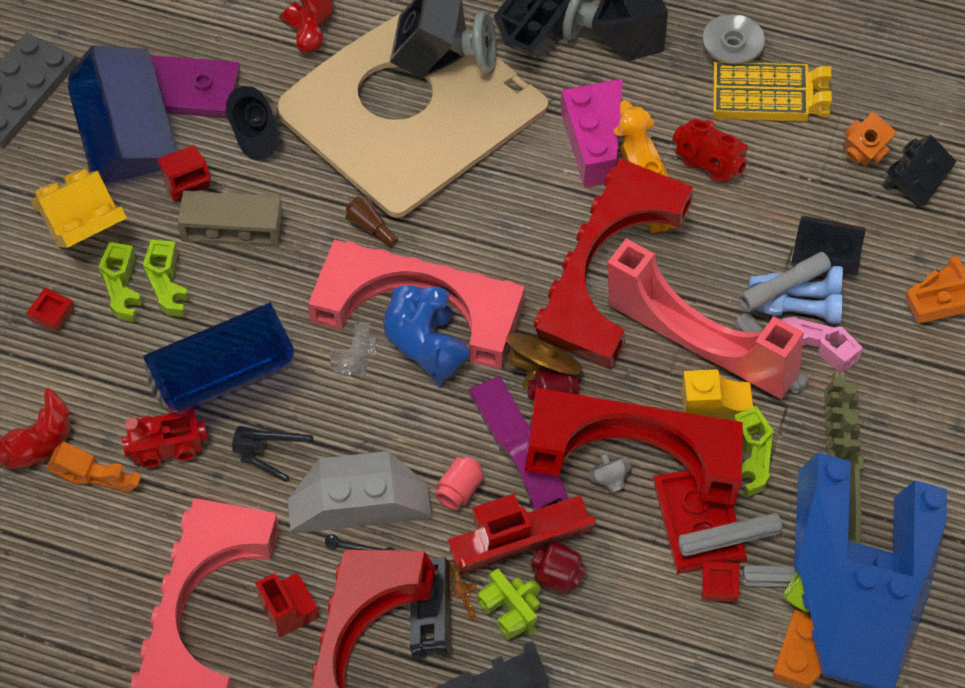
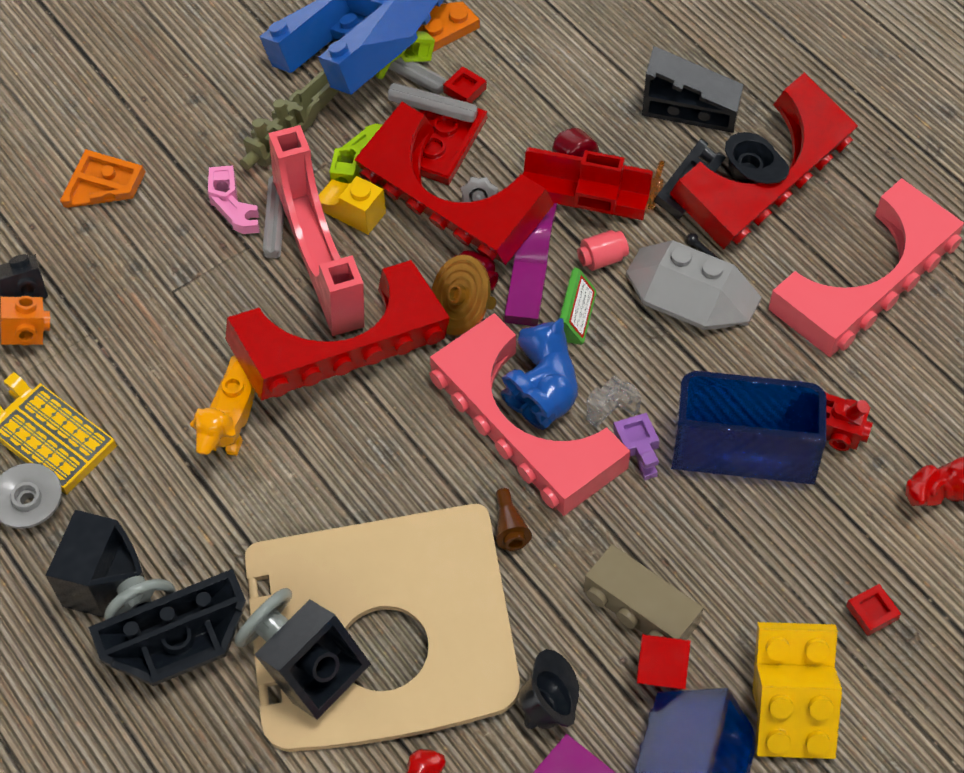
camera: 145 degrees left, 0 degrees up
(82, 468) = (919, 438): orange piece -> none
(122, 258) = (797, 585): lime piece -> none
(167, 293) = (749, 564): lime piece -> none
(253, 441) = (751, 368): black plant -> none
(286, 602) = (801, 239): red piece -> none
(312, 335) = (641, 440): none -> medium lavender plate
(372, 644) = (754, 159): none -> black piece
(444, 418) = (577, 307): none -> slope
(516, 602) = (623, 146): lime hips -> none
(590, 120) = (235, 479): dark pink wedge -> none
(710, 149) = (158, 399): red brick -> none
(800, 273) = (219, 235): light grey piece -> none
(827, 290) = (231, 247): light blue piece -> none
(837, 240) = (152, 260): black bracket -> none

